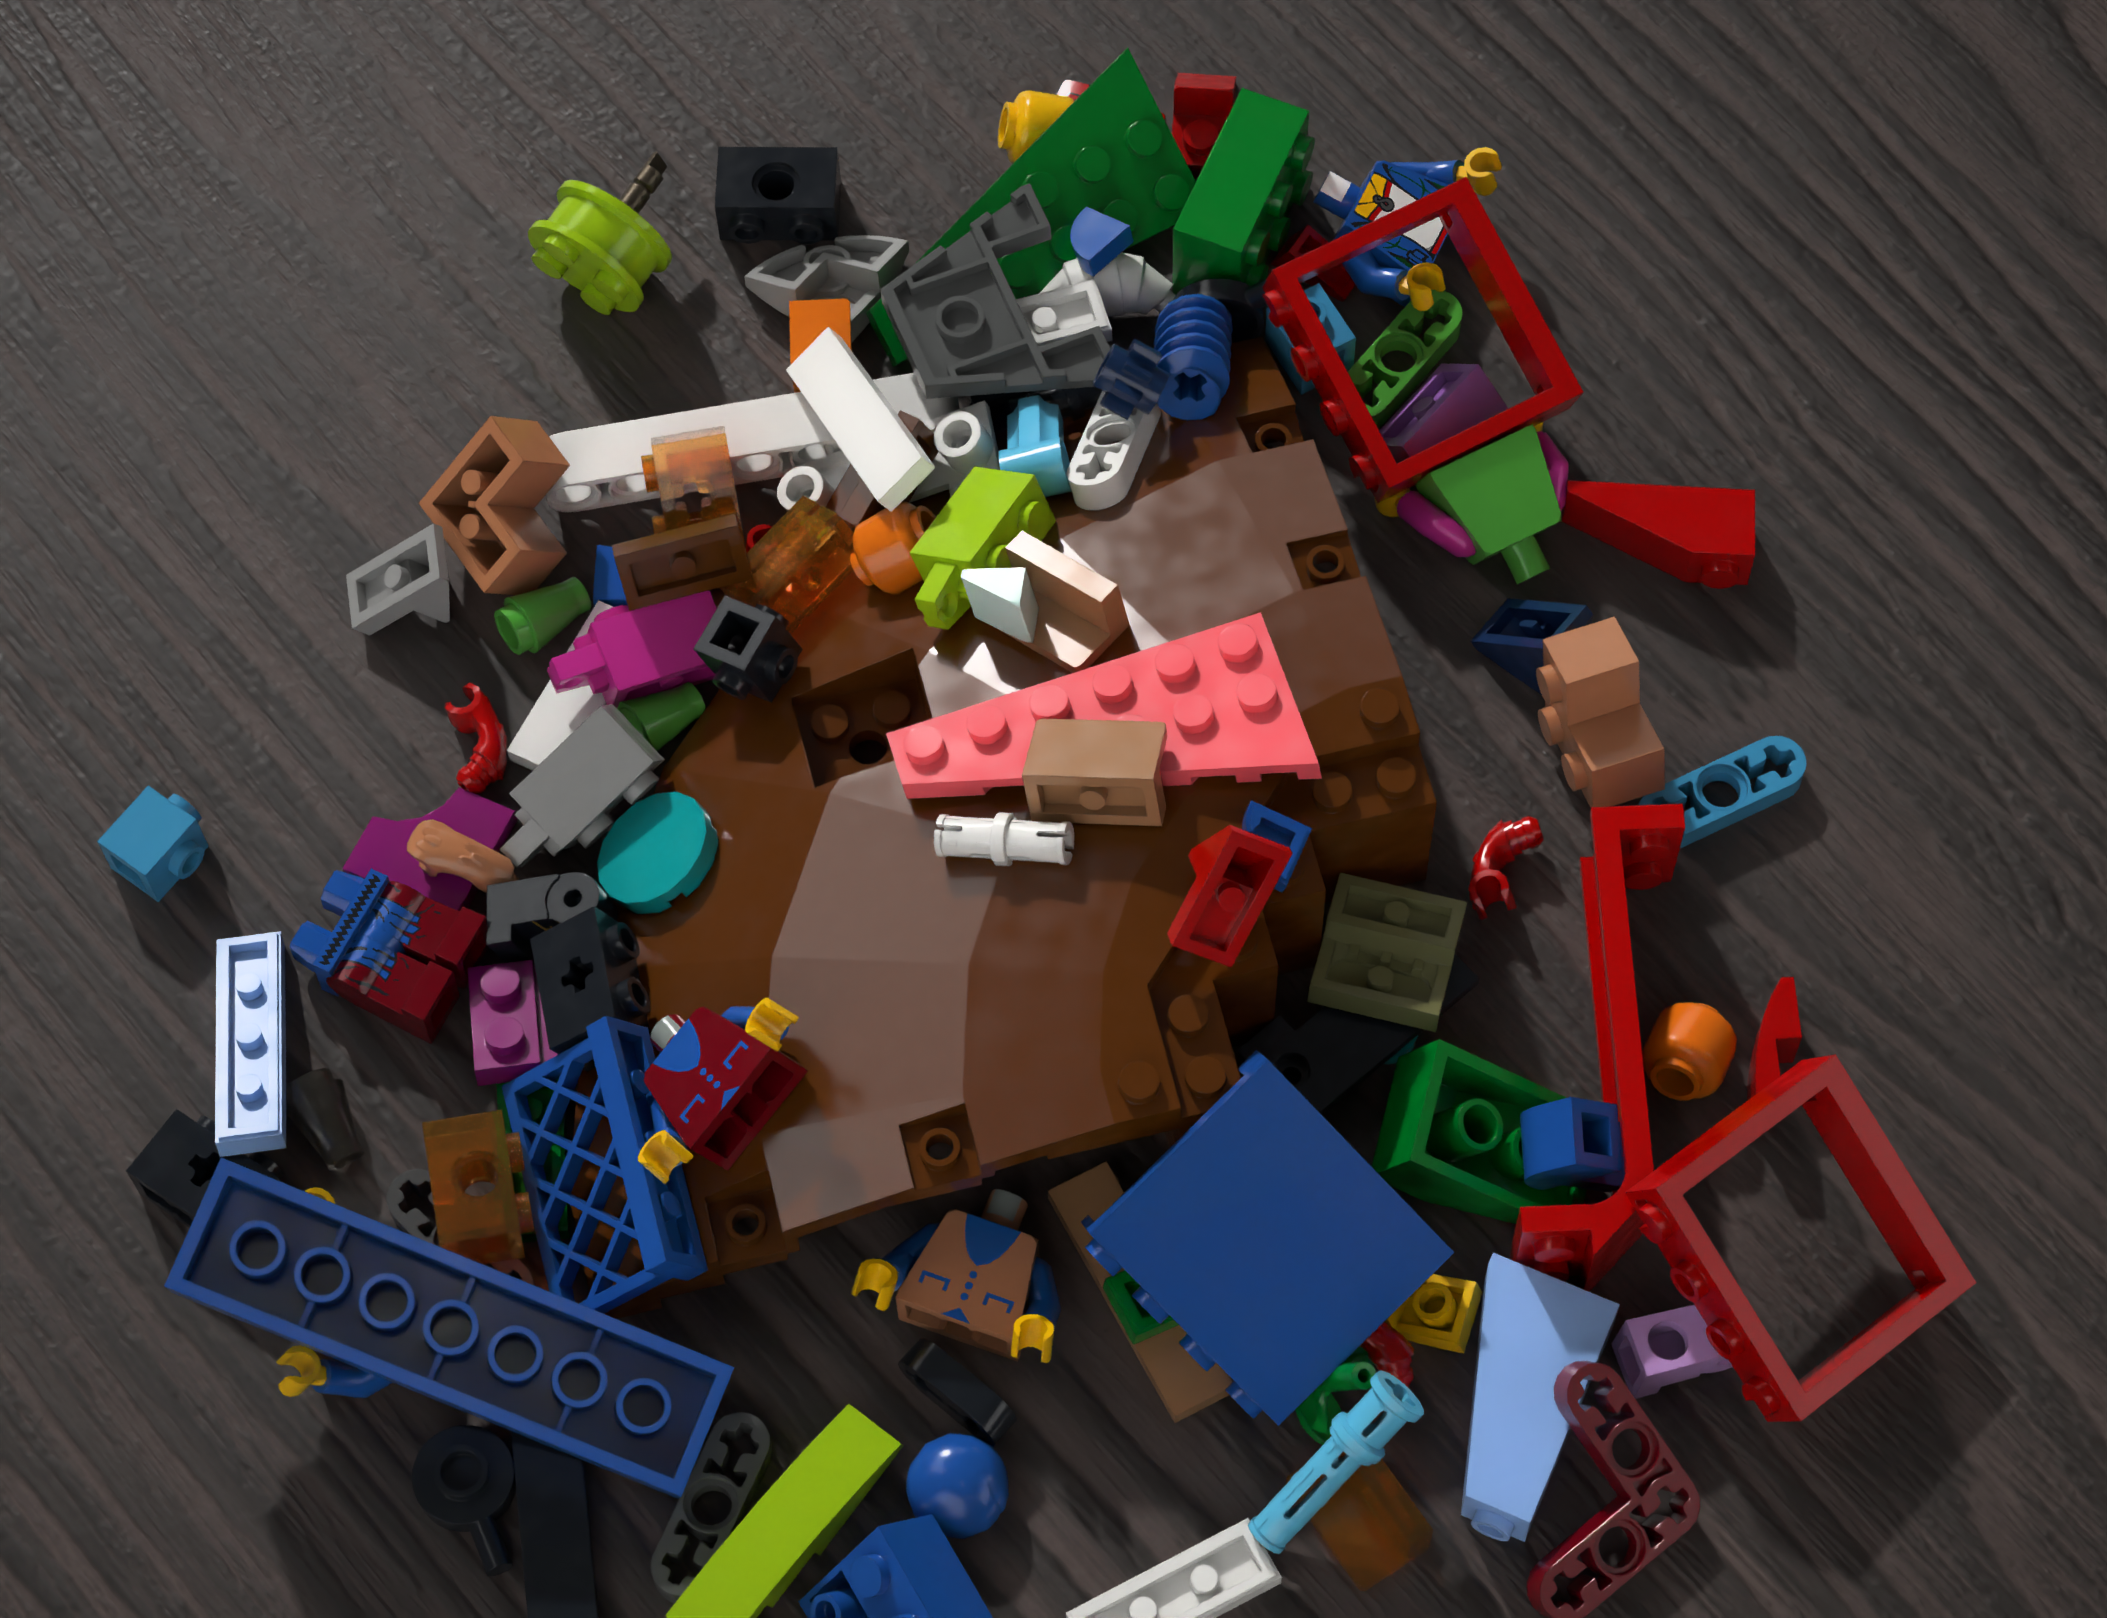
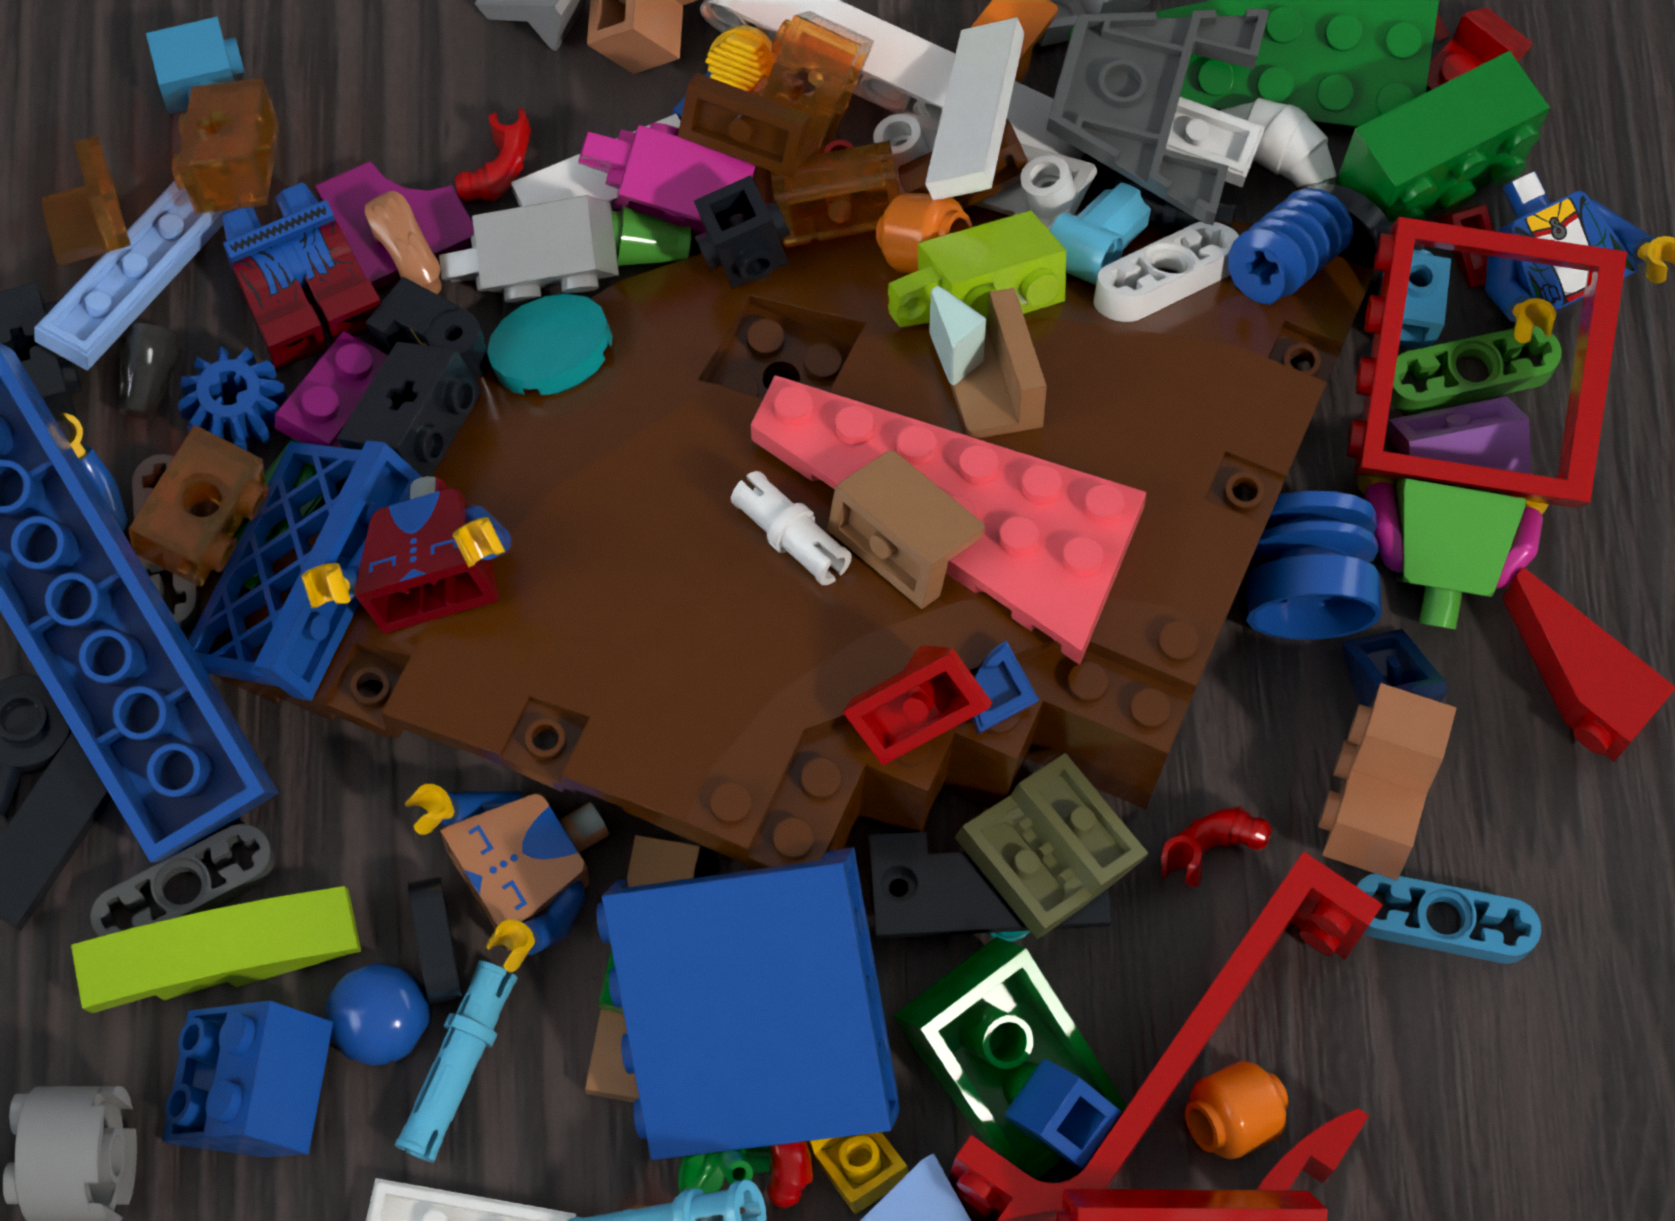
camera: 30 degrees right, 5 degrees up
(174, 1019) = (88, 217): none -> clear orange panel
(246, 884) = (227, 146): none -> clear orange brick
(418, 1067) = (251, 384): none -> blue gear
(539, 615) = (624, 93): bright green cone -> none
(617, 516) = (741, 57): none -> yellow piece
(1047, 1449) = (460, 1051): none -> medium azure pin
(1098, 239) = (1295, 97): blue tile -> none
(1130, 379) = (1214, 227): dark blue gear -> none
(1420, 591) = (1315, 568): none -> blue wheel

